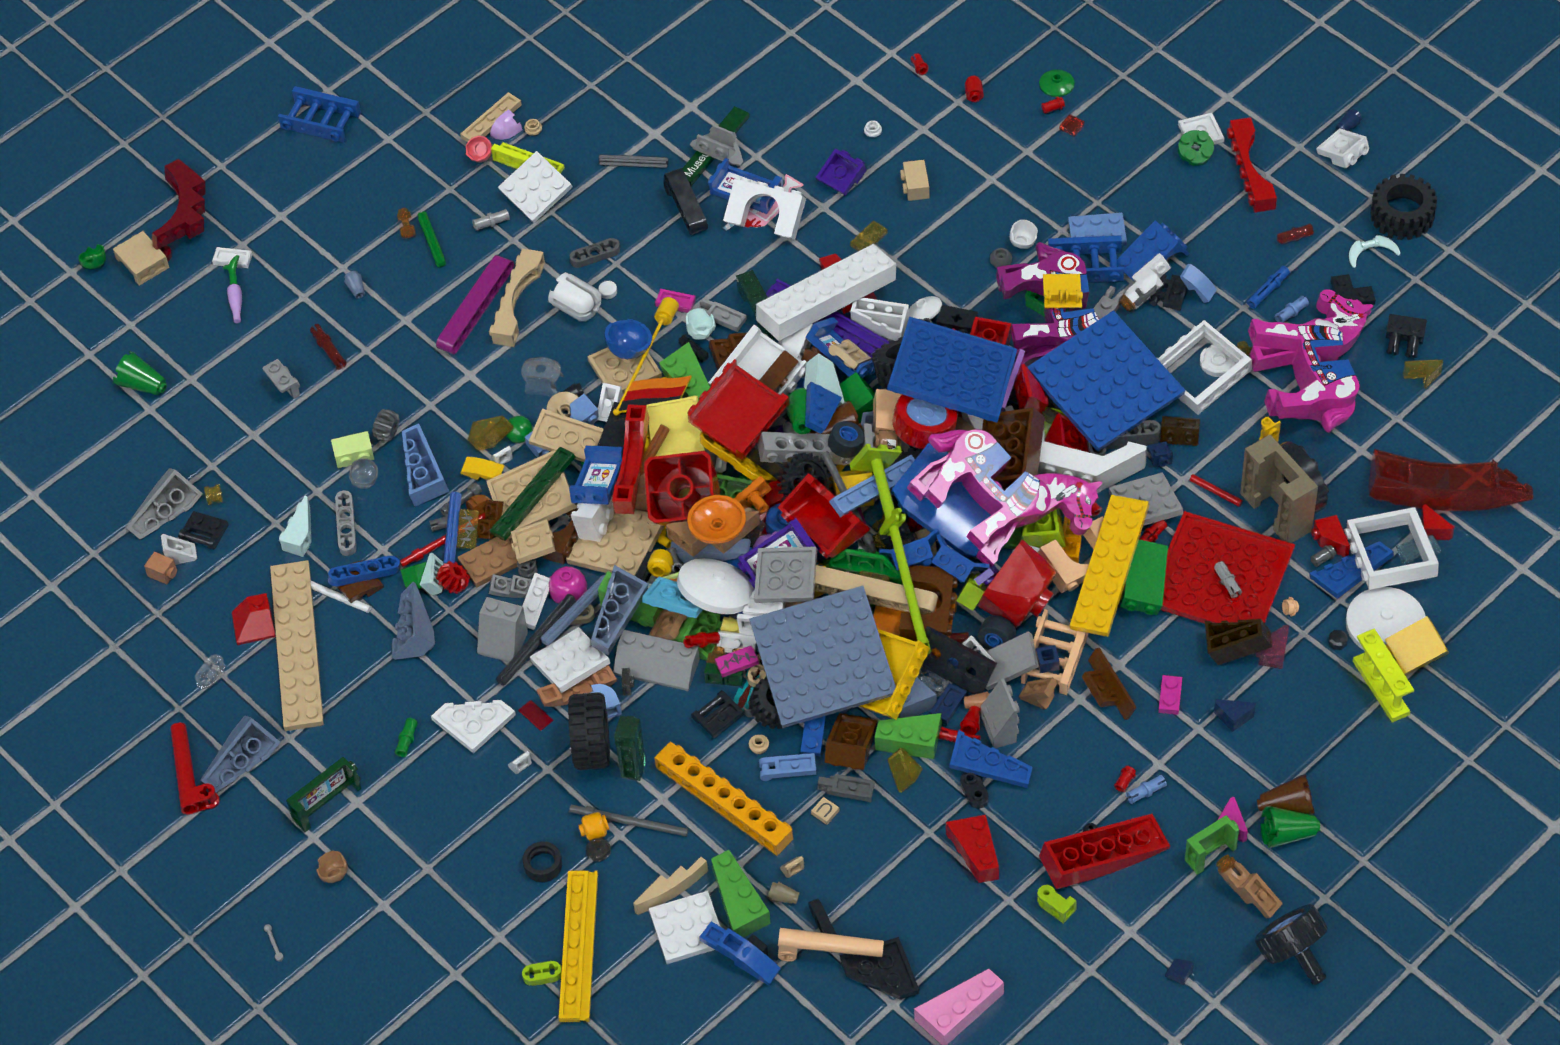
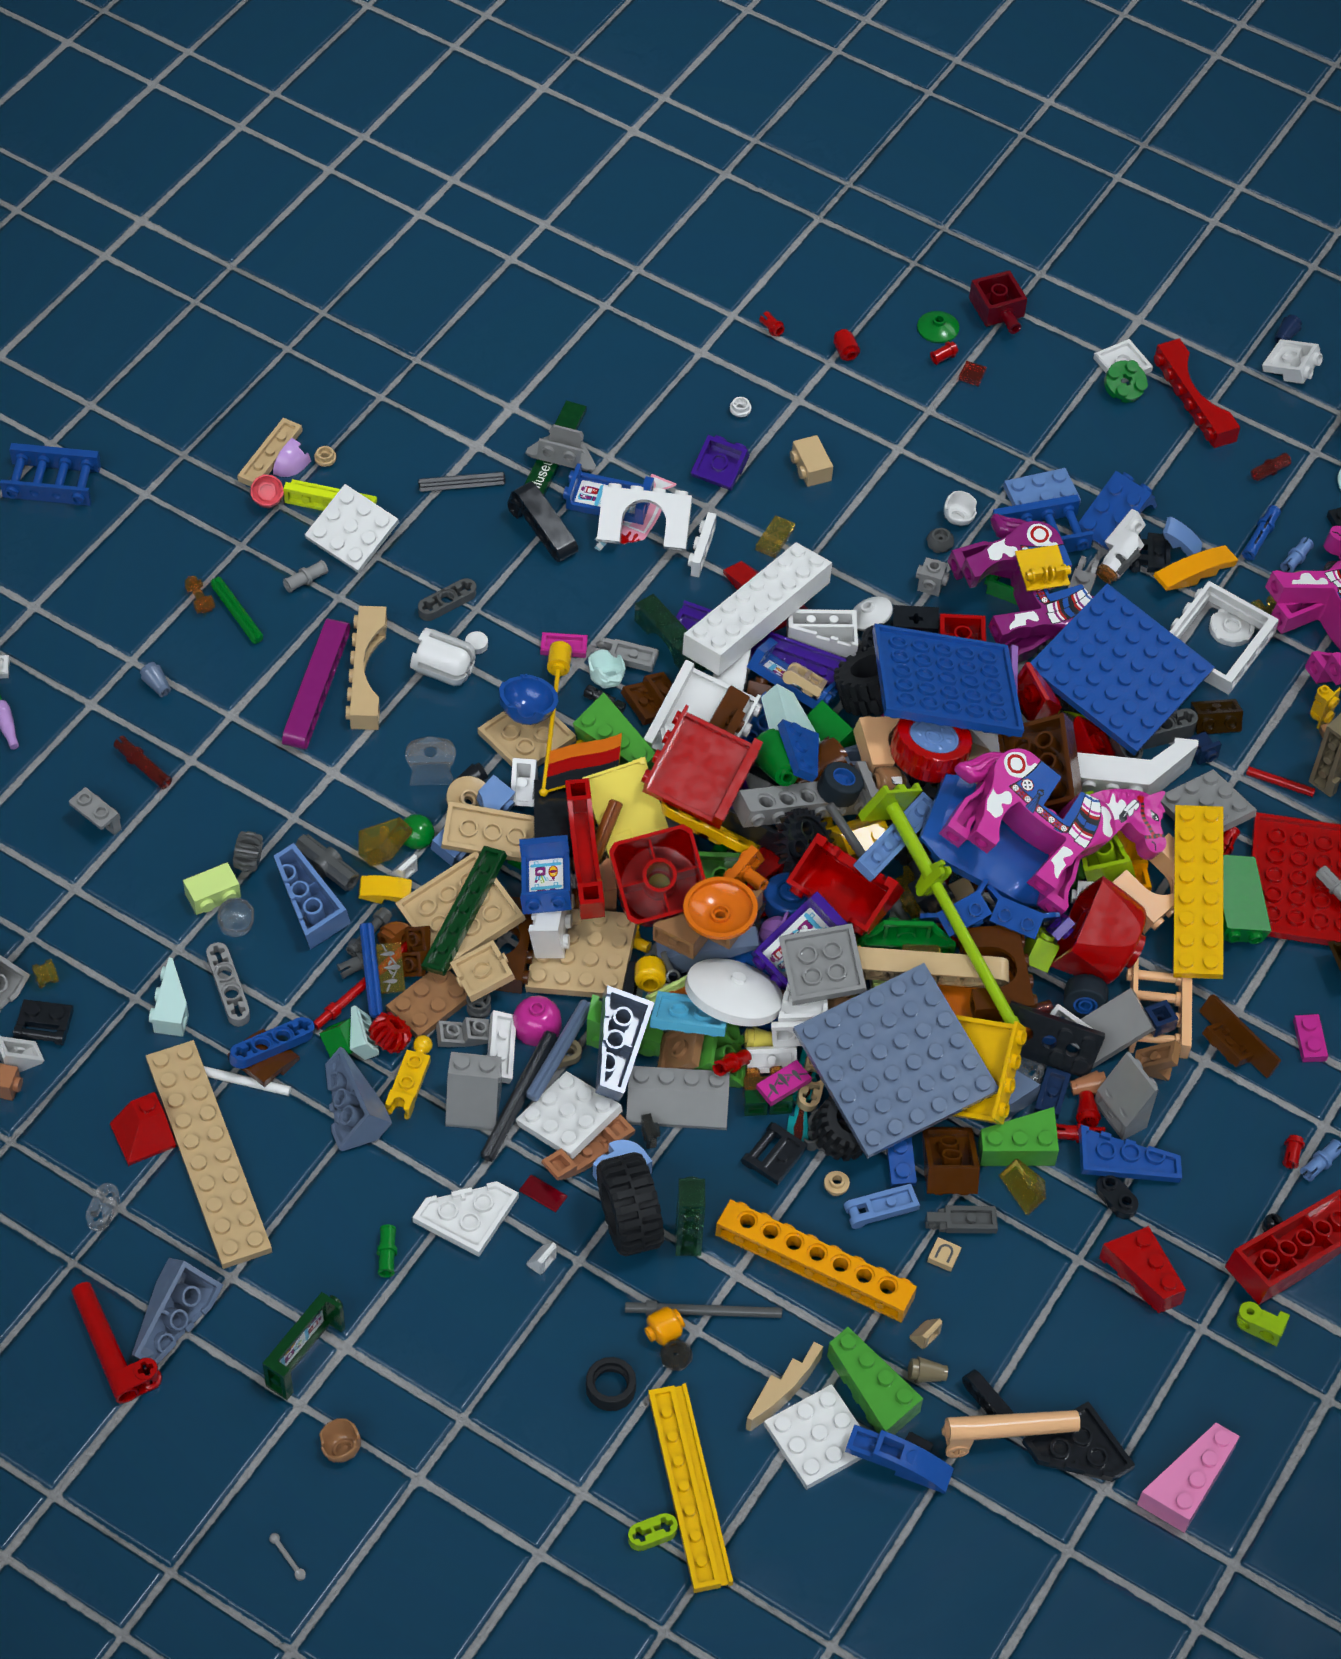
camera: 20 degrees left, 0 degrees up
(444, 442) = (327, 862): none -> dark grey piece
(459, 613) = (410, 1077): none -> yellow plate
(807, 236) = (702, 544): none -> white plate
(983, 286) = (932, 576): none -> light grey brick
(1110, 67) = (999, 300): none -> dark red brick
(1204, 307) = (1194, 567): none -> light orange slope

